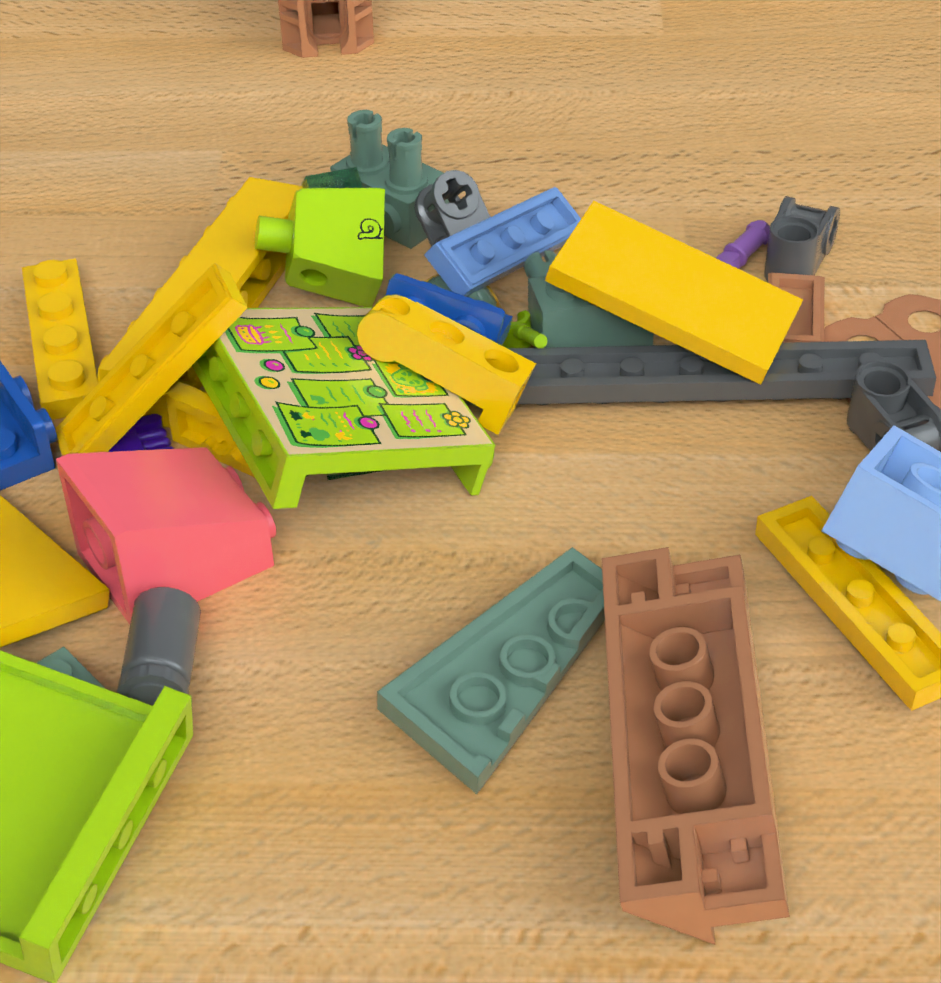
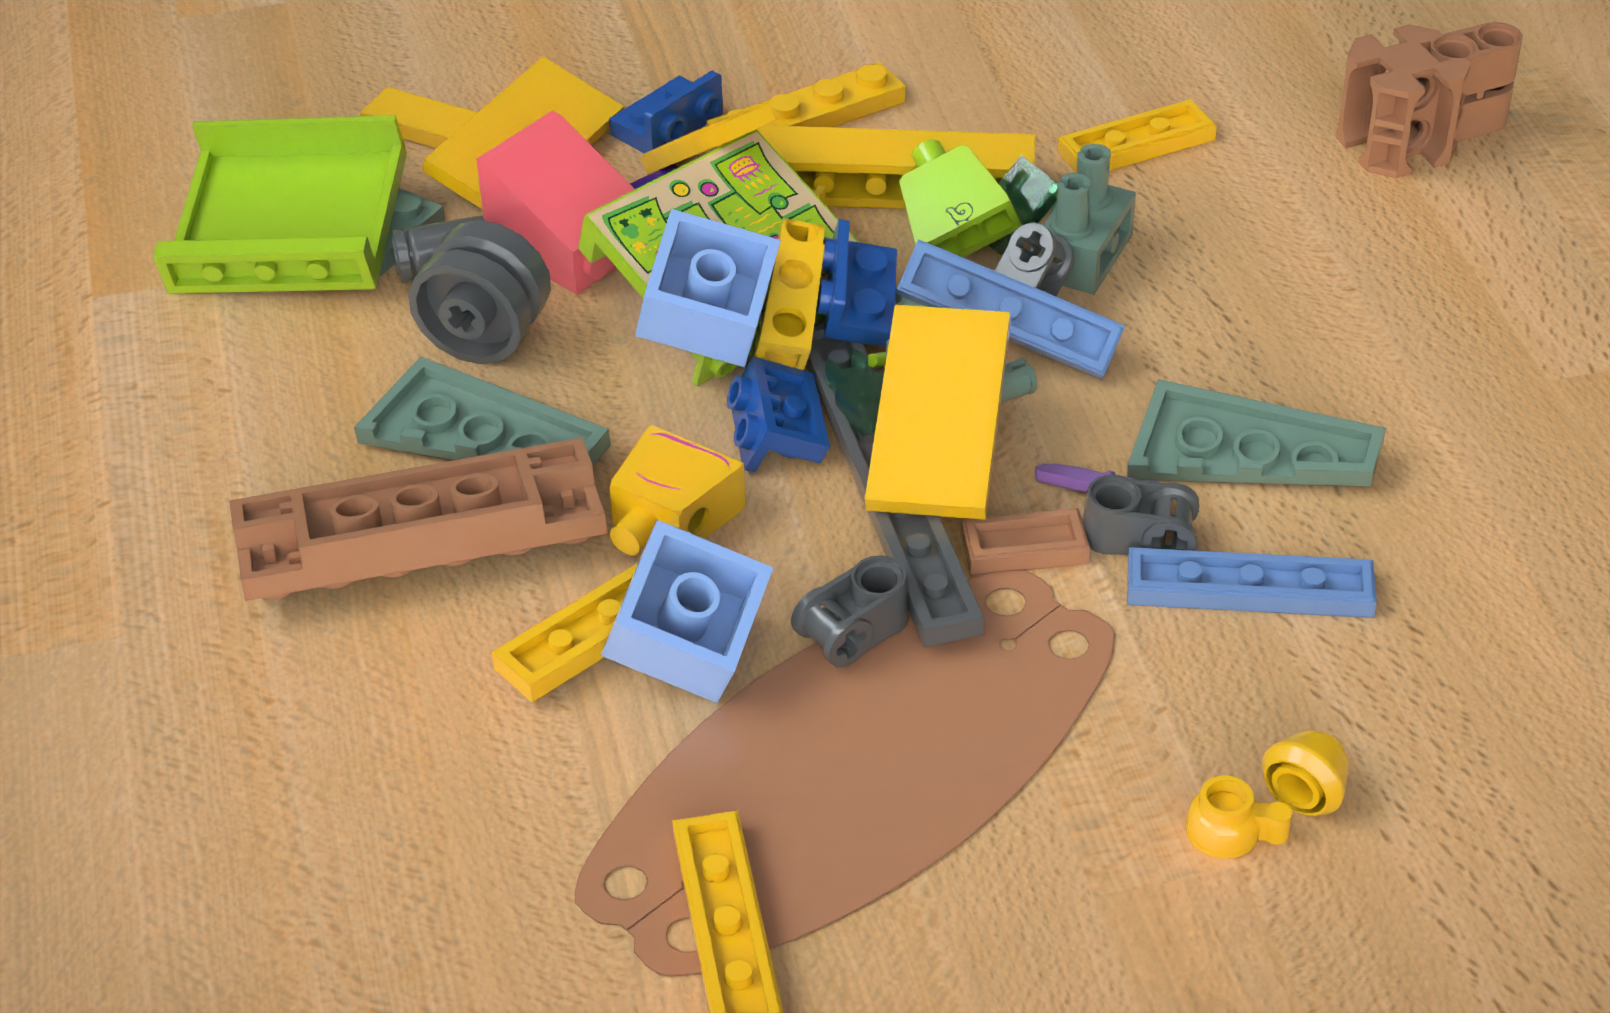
camera: 75 degrees right, 0 degrees up
(243, 144) = (1143, 135): none -> yellow tile
(310, 604) = (479, 292): none -> dark grey wheel
(455, 389) = (707, 288): none -> light blue brick
(576, 436) = (776, 412): none -> blue bracket
(599, 348) = (856, 391): none -> clear green plate
(684, 507) = (675, 484): none -> yellow torso
(706, 173) = (1243, 440): none -> sand green wing
(874, 212) = (1251, 582): none -> medium blue tile

